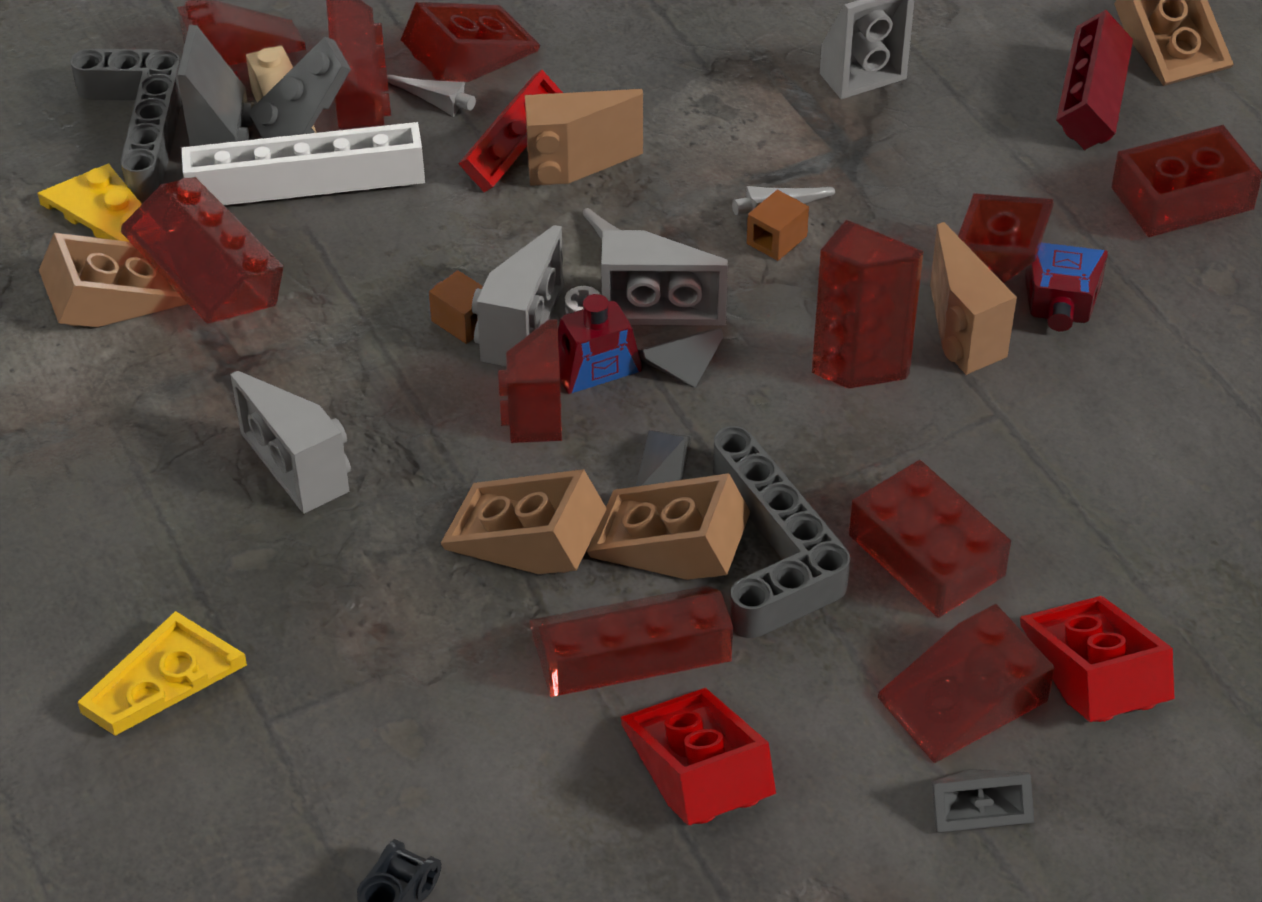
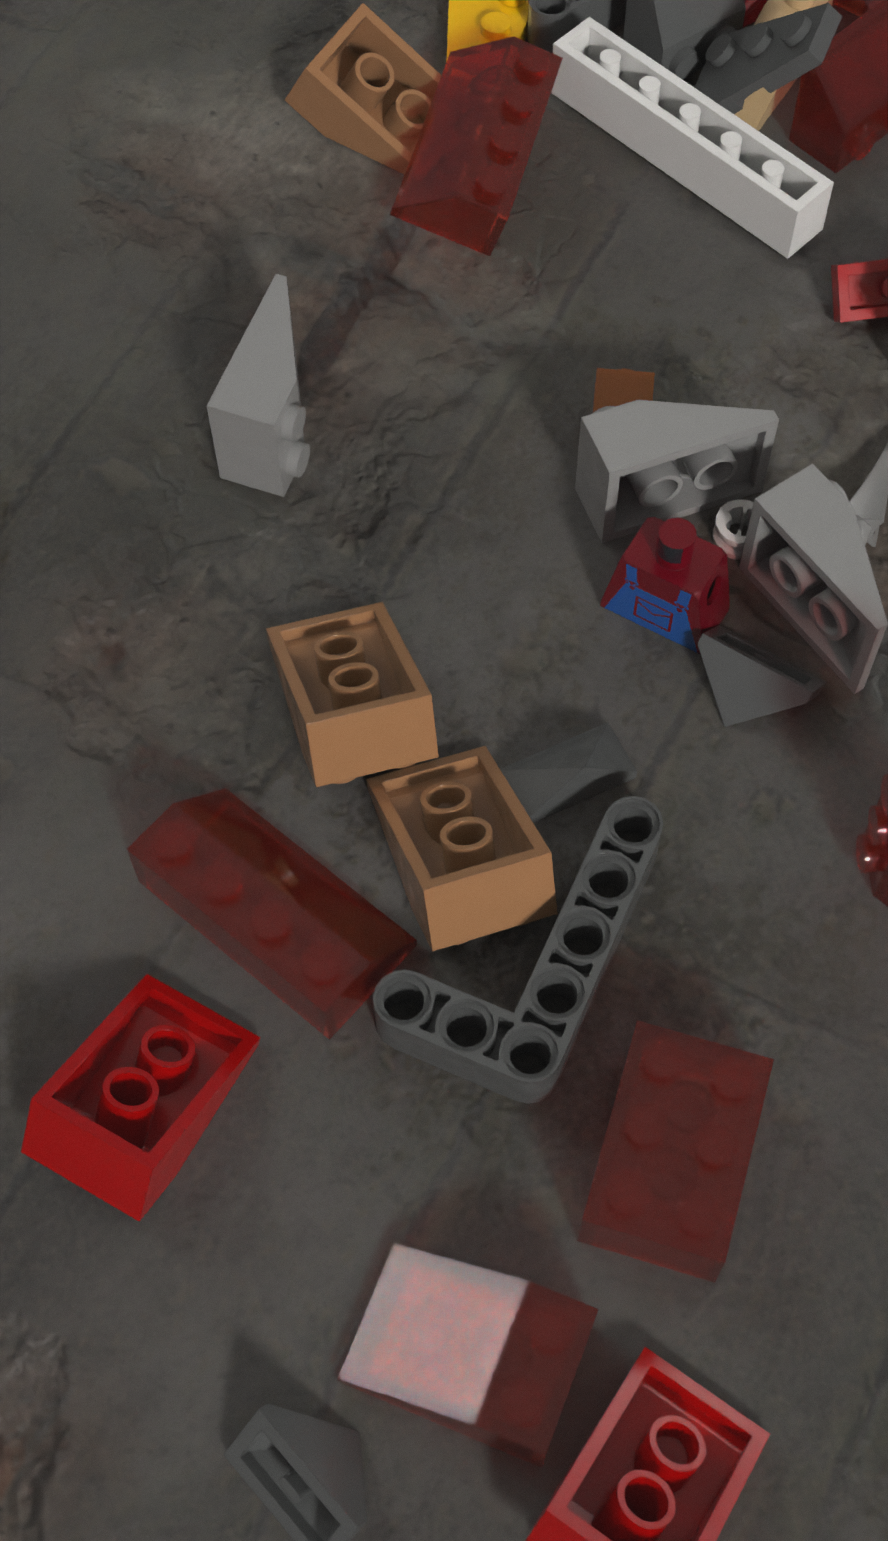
camera: 55 degrees right, 15 degrees up
(532, 387) = (546, 561): clear red slope -> none

